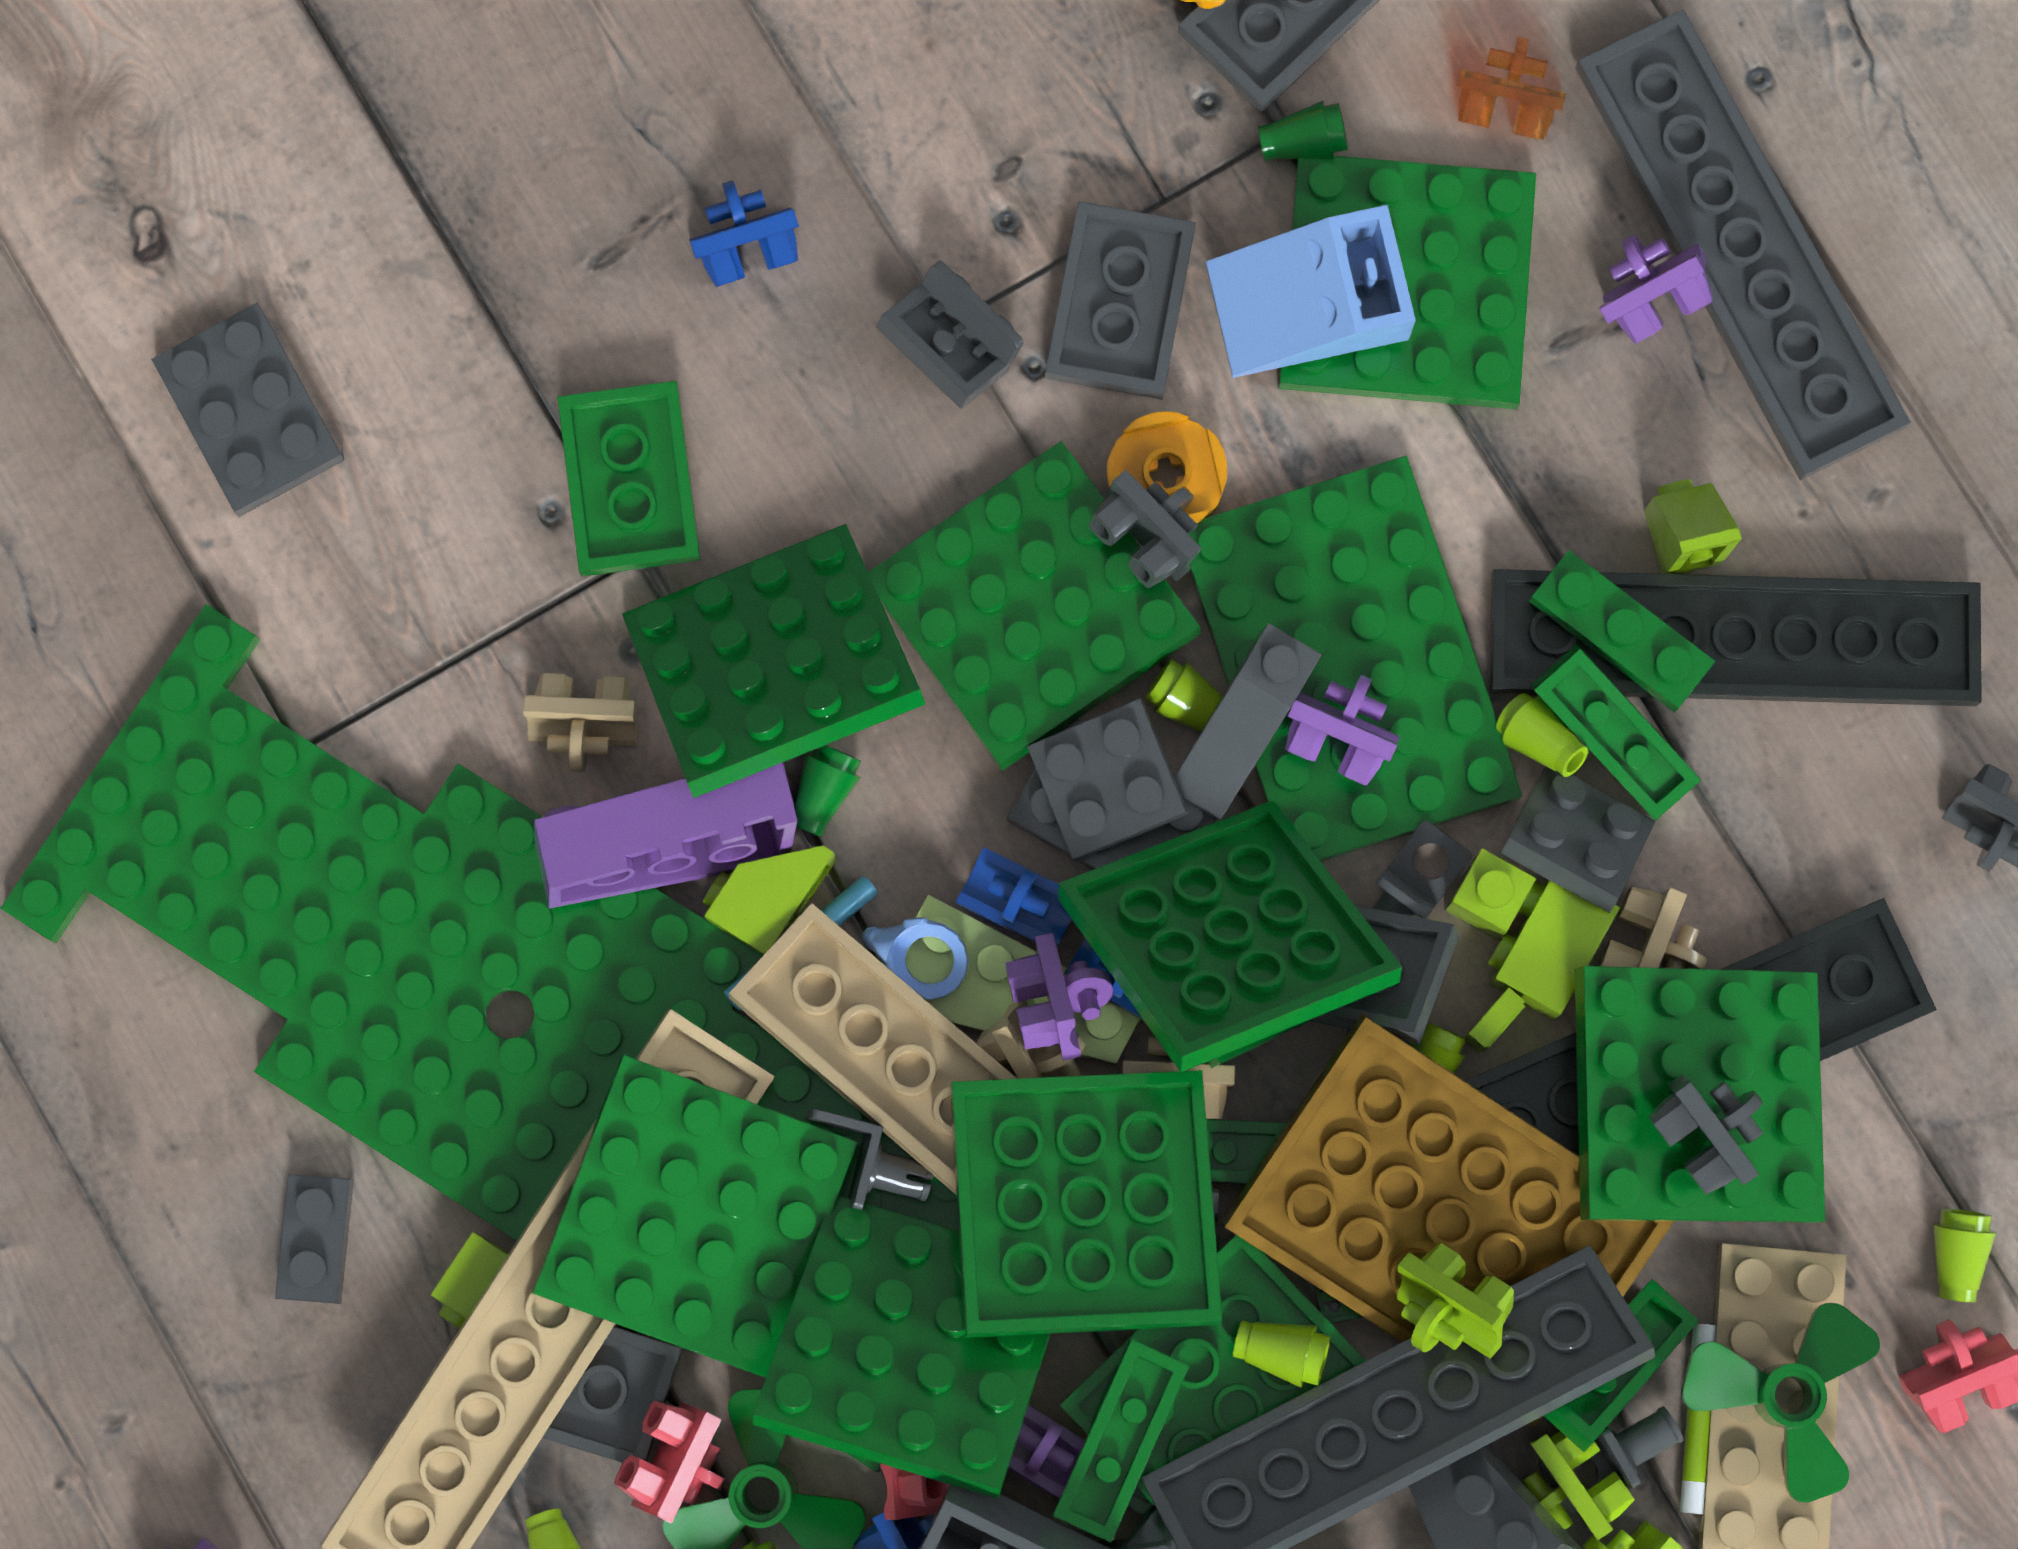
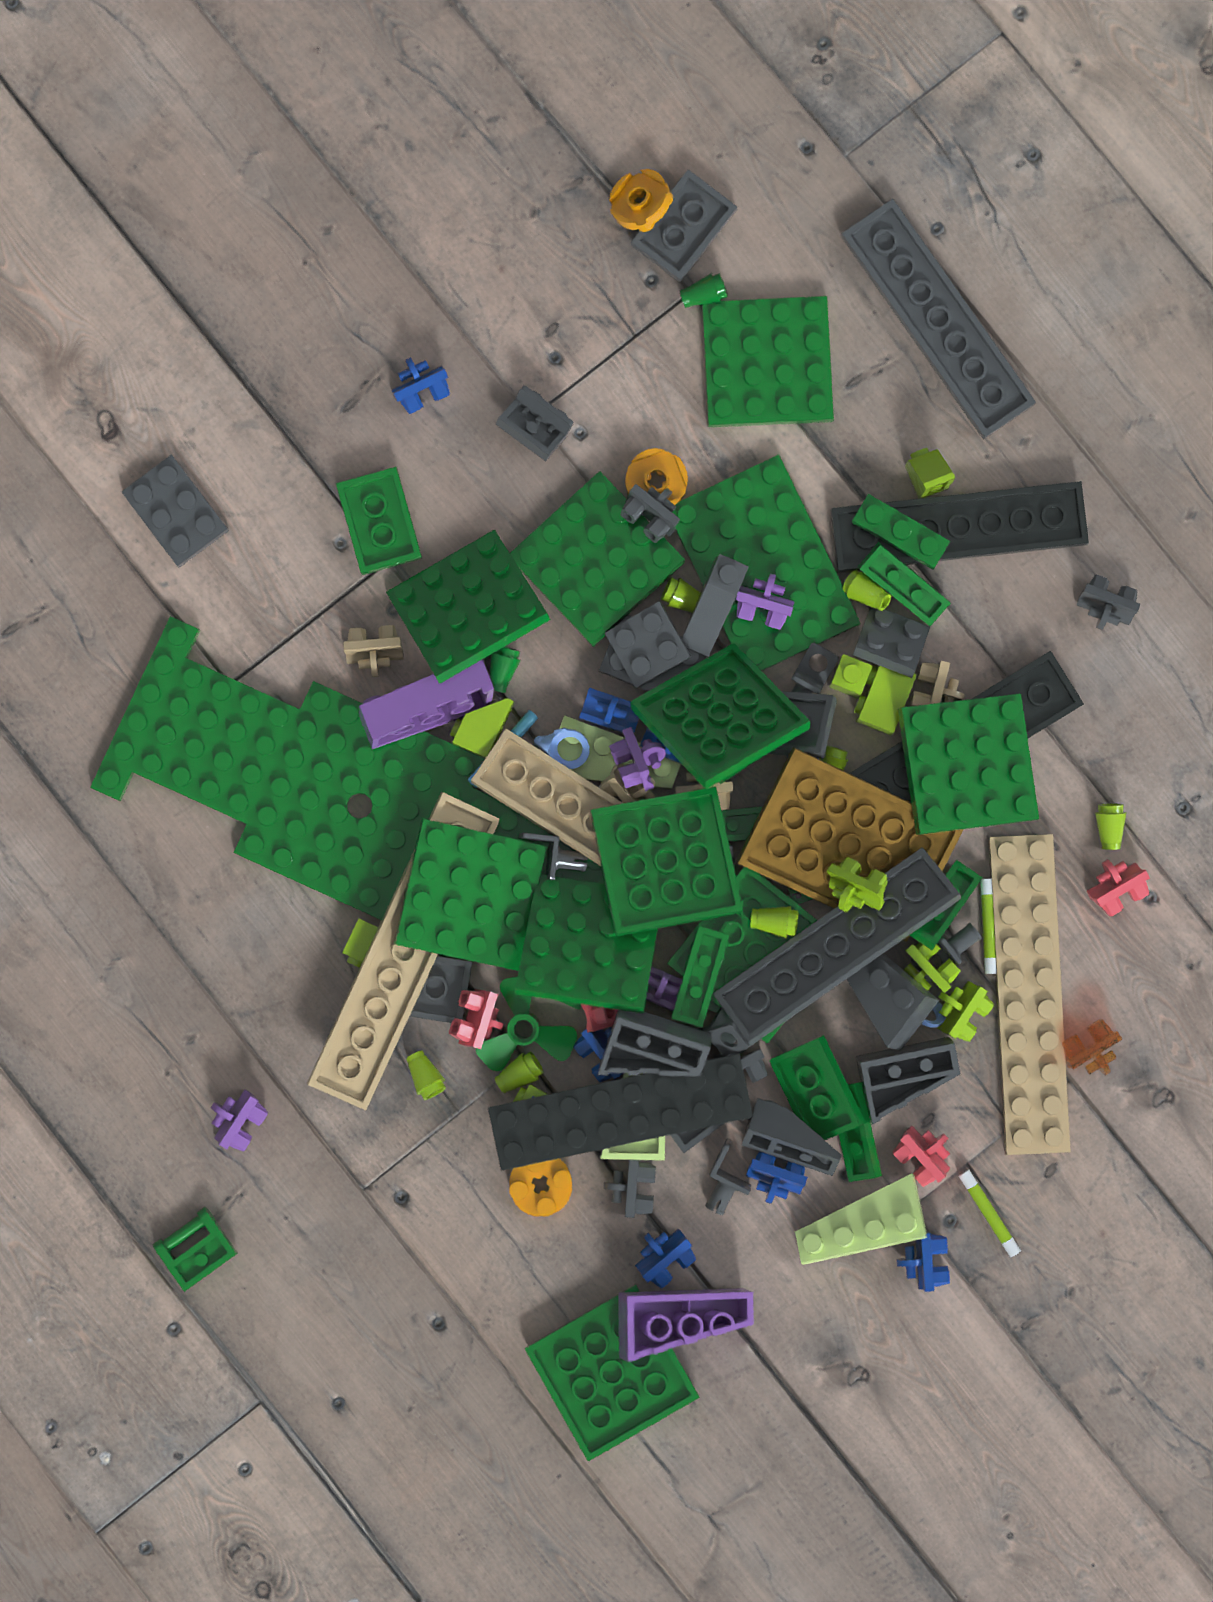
camera: 10 degrees left, 5 degrees up
(314, 1239) = (277, 933): dark grey plate -> none
(1120, 300) = (620, 392): dark grey plate -> none
(1312, 293) = (719, 377): light blue slope -> none
(1495, 1020) = (861, 740): lime tile -> none
(1535, 102) = (822, 258): clear orange hips -> none
(1632, 301) = (885, 357): medium lavender hips -> none
(1723, 1158) = (983, 794): dark grey hips -> none
(1830, 1347) = (1049, 881): green piece -> none

